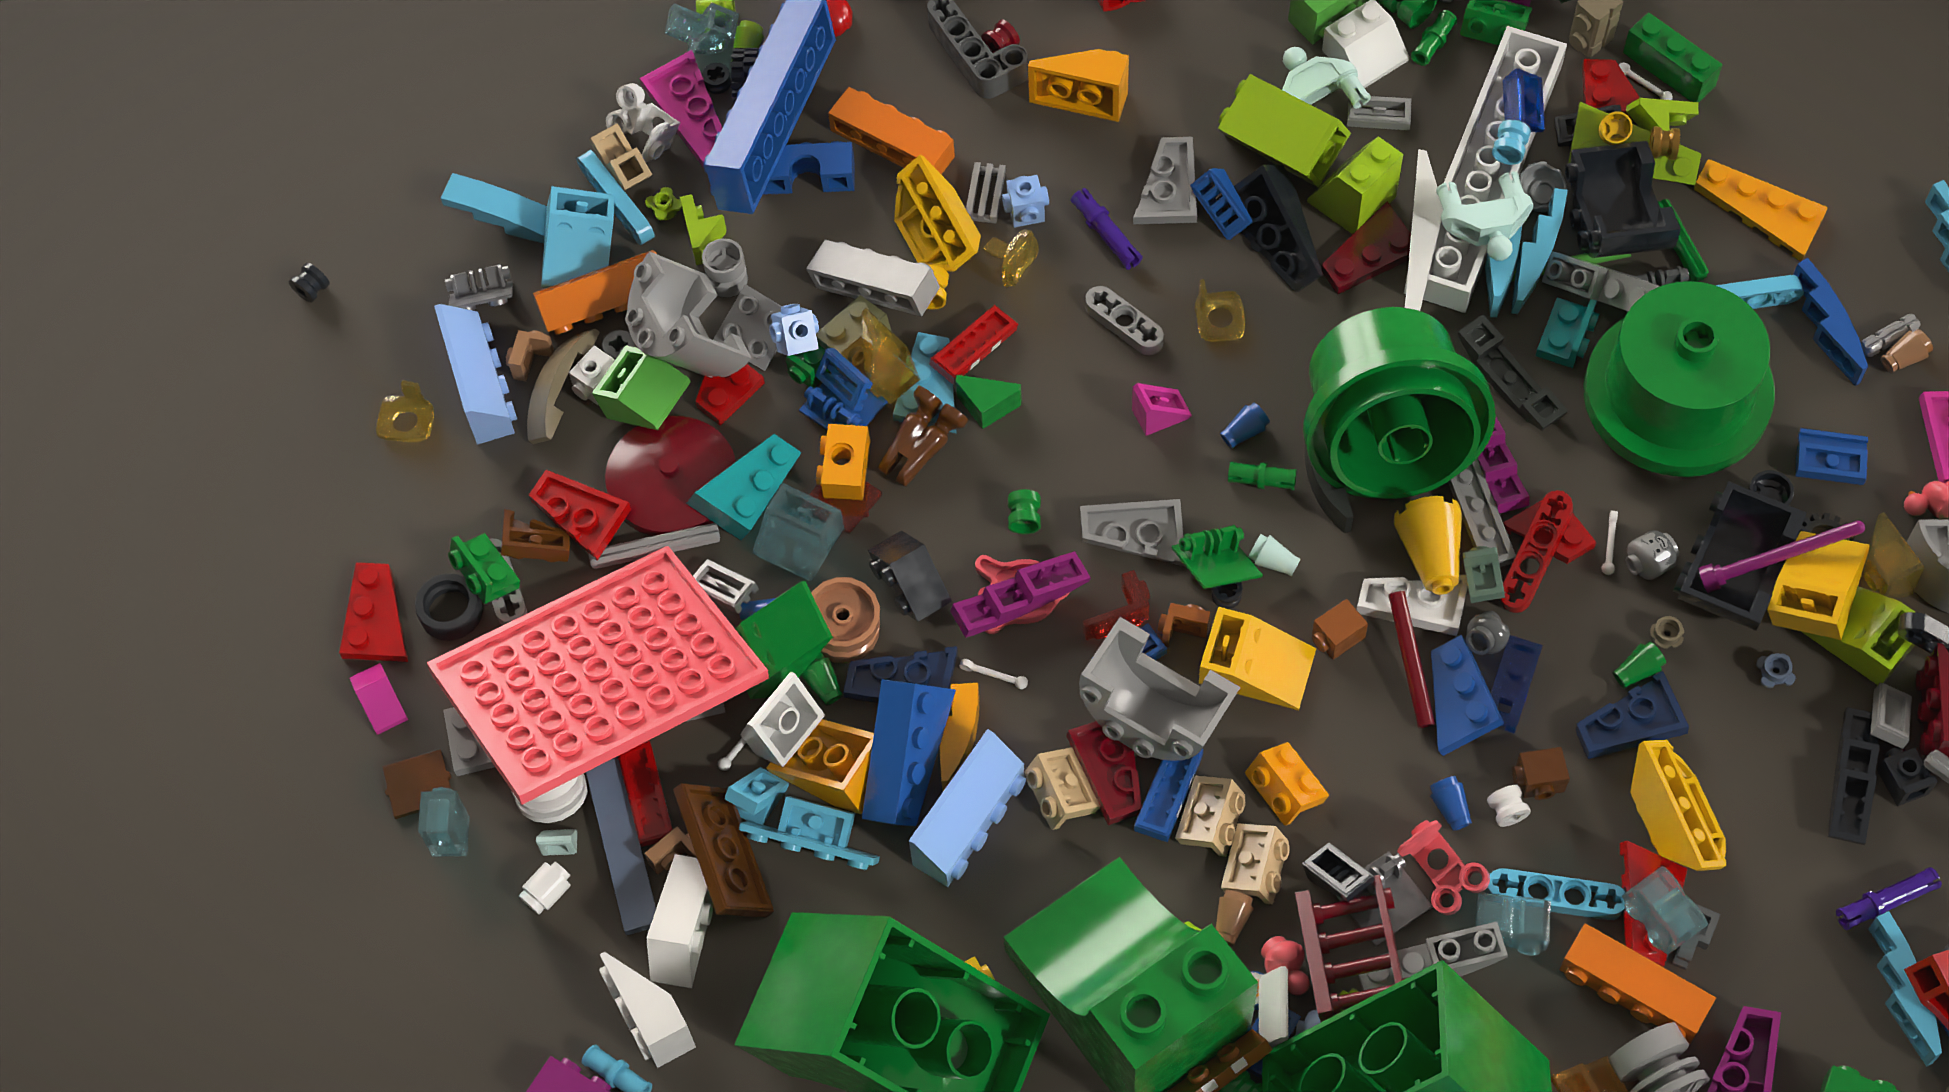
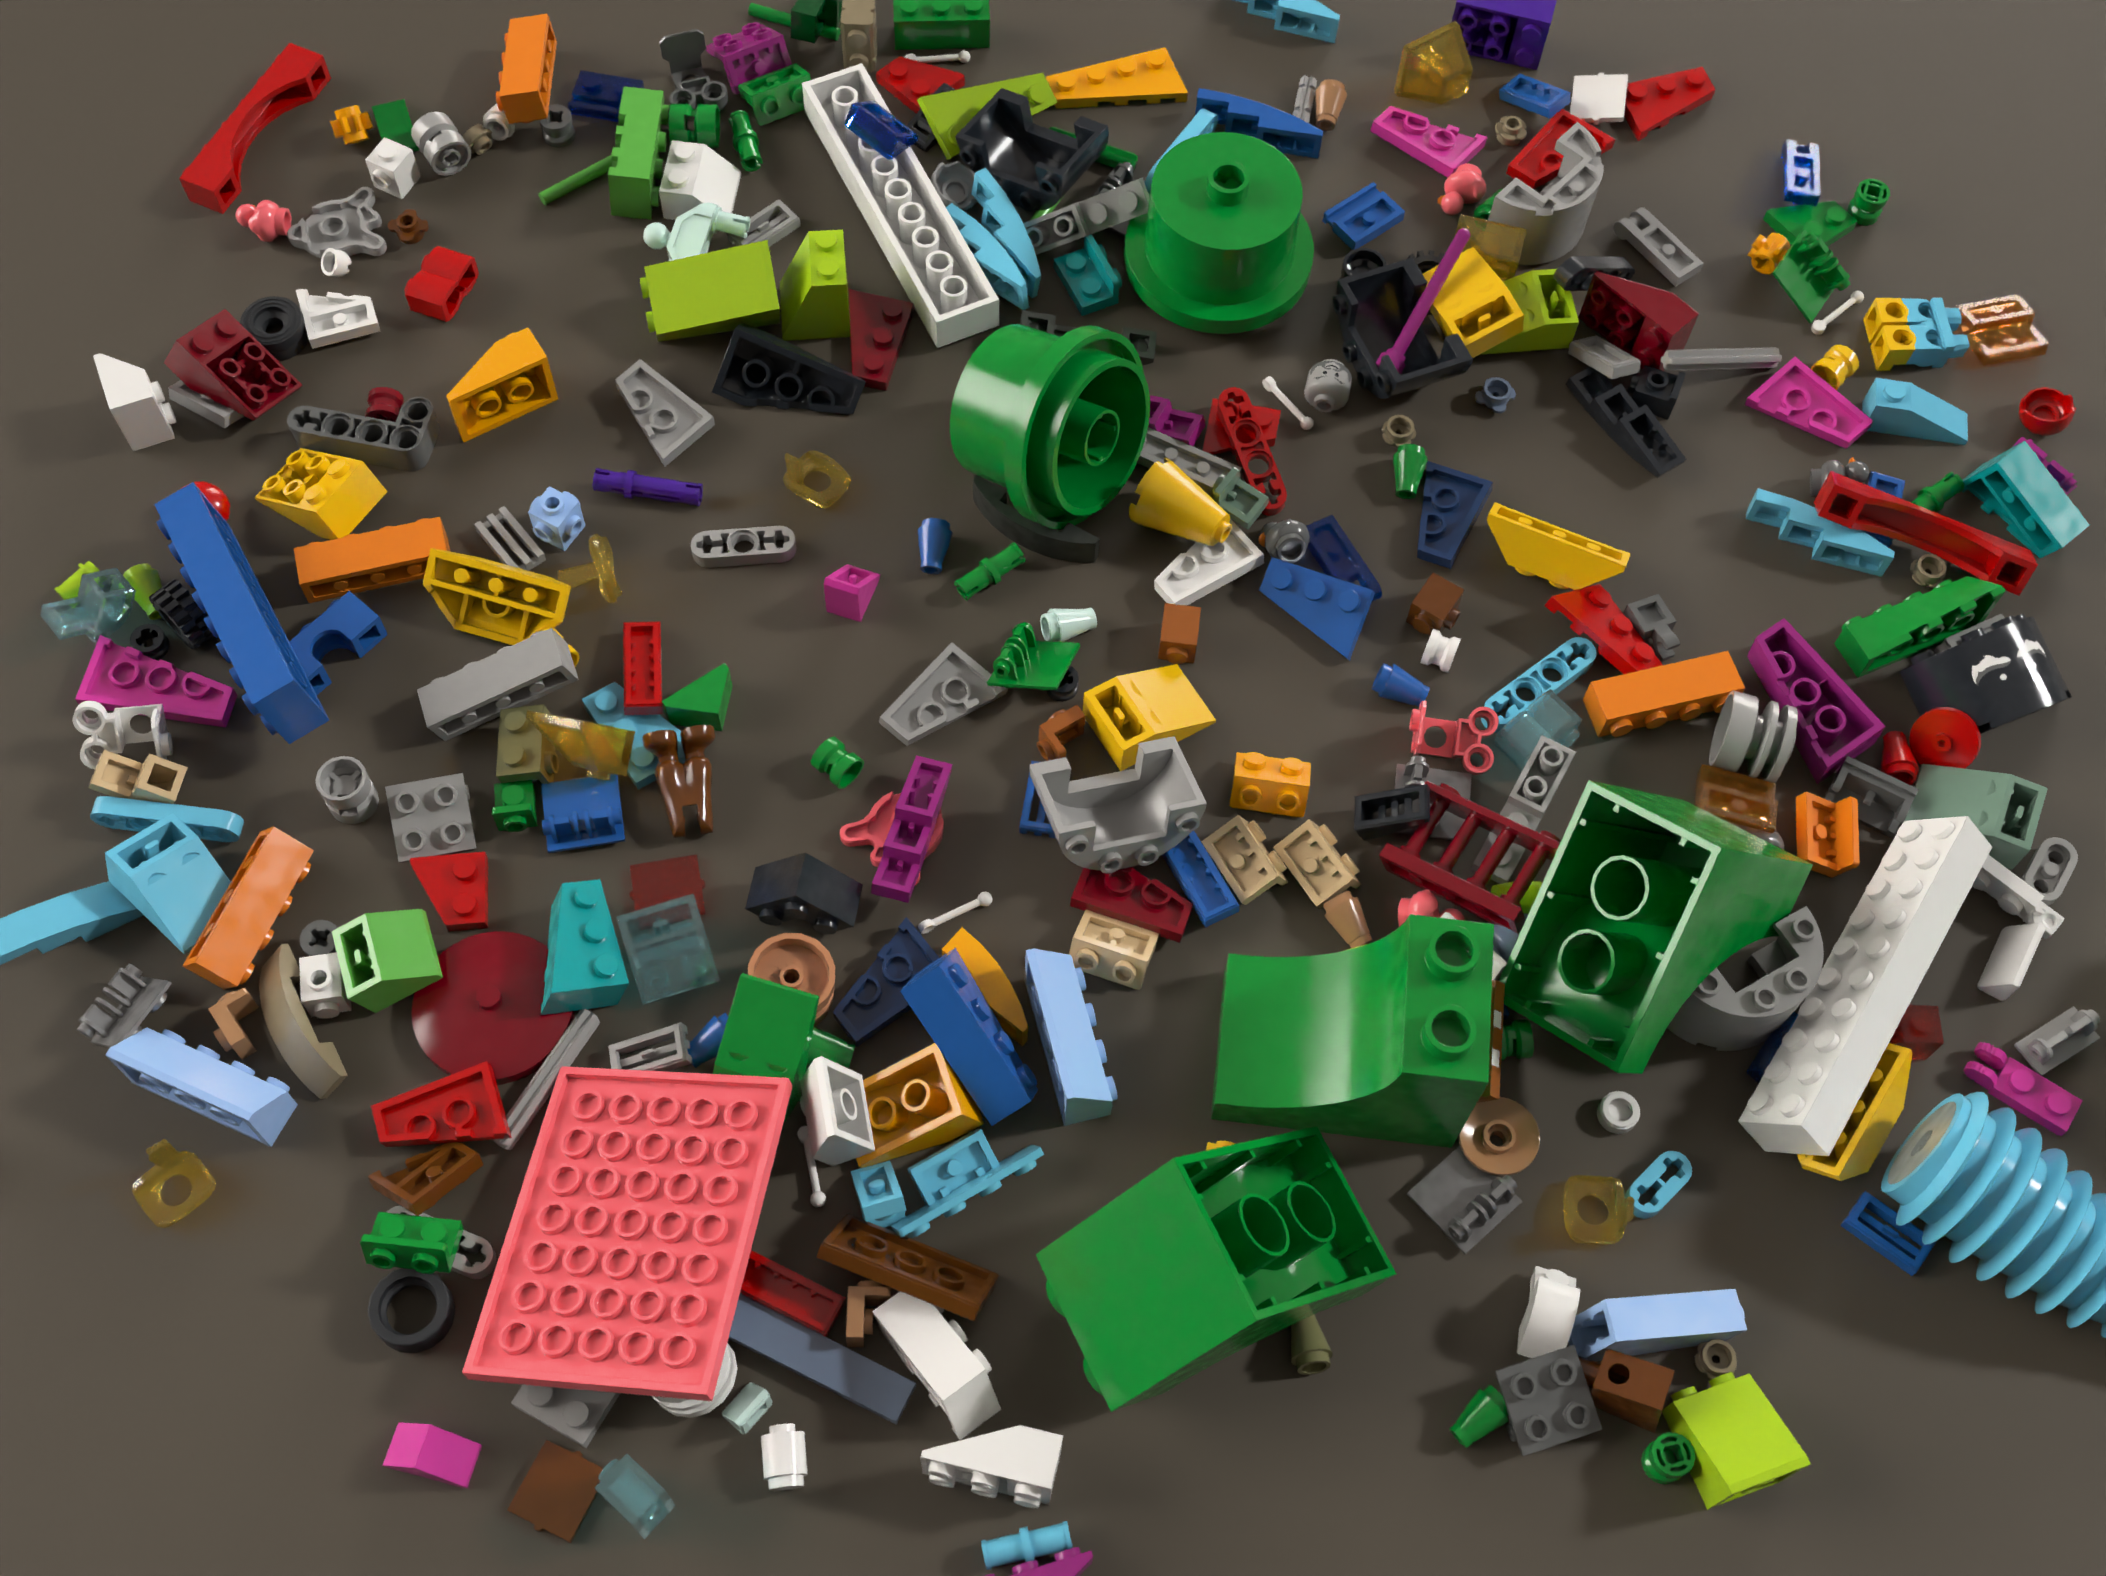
camera: 55 degrees left, 0 degrees up
(372, 617) = (344, 1390): red wing -> none
(666, 323) = (334, 870): light grey cylinder -> none
(667, 210) = (228, 794): lime plate -> none
(701, 229) = (287, 782): lime slope -> none
(794, 330) = (479, 784): light blue brick -> none
(846, 374) = (596, 786): blue tile -> none
(849, 479) = (637, 835): light orange brick -> none
(907, 64) = (322, 492): none -> yellow slope
(1135, 612) = (1008, 751): clear red bracket -> none
(1206, 195) = (728, 378): blue slope -> none
(1411, 659) = (1256, 607): dark red piece -> none
(1424, 231) = (914, 280): white sticker -> none
(1487, 221) = (956, 233): light aqua connector -> none
(1511, 142) = (910, 164): medium azure wheel -> none
(1617, 123) = (974, 91): yellow wheel -> none
(1661, 112) = (981, 66): lime slope -> none
(1664, 142) = (1016, 78): pearl gold wheel -> none
(1664, 910) = (1633, 620): clear light blue brick -> none
(1877, 903) = (1737, 495): dark purple pin -> none

